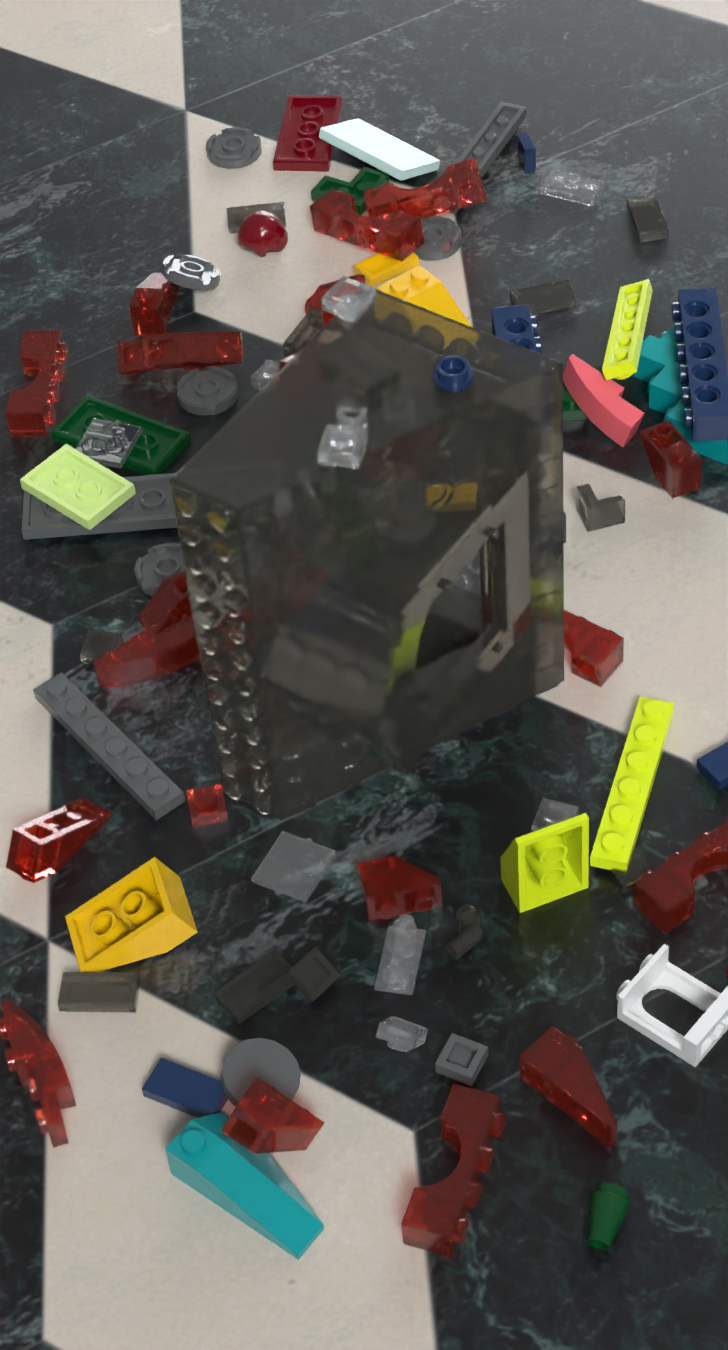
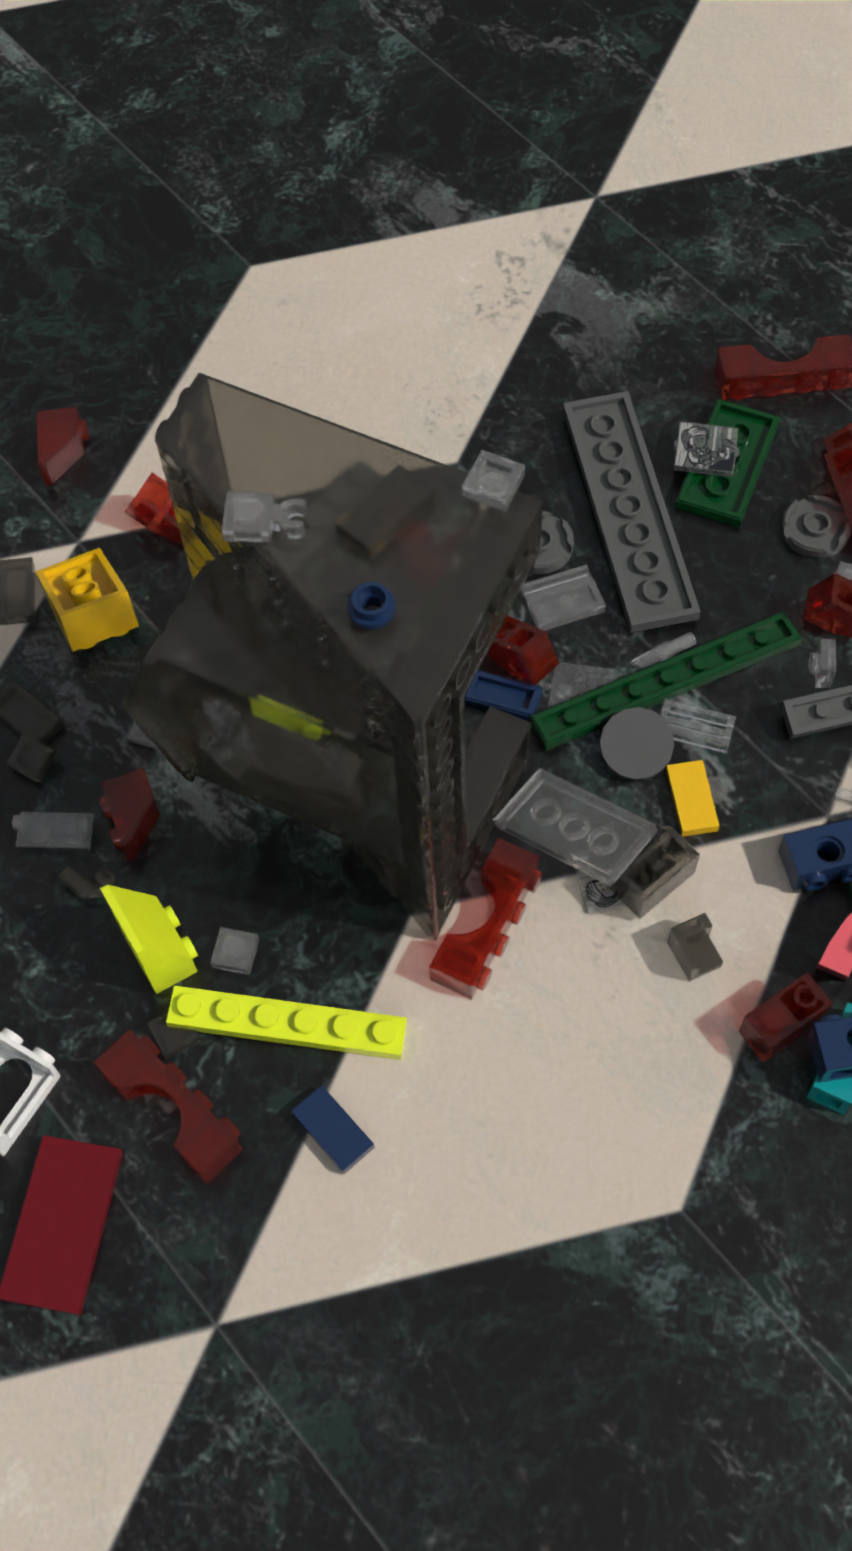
camera: 80 degrees right, 15 degrees up
(78, 486) = (621, 432): yellowish green plate -> none

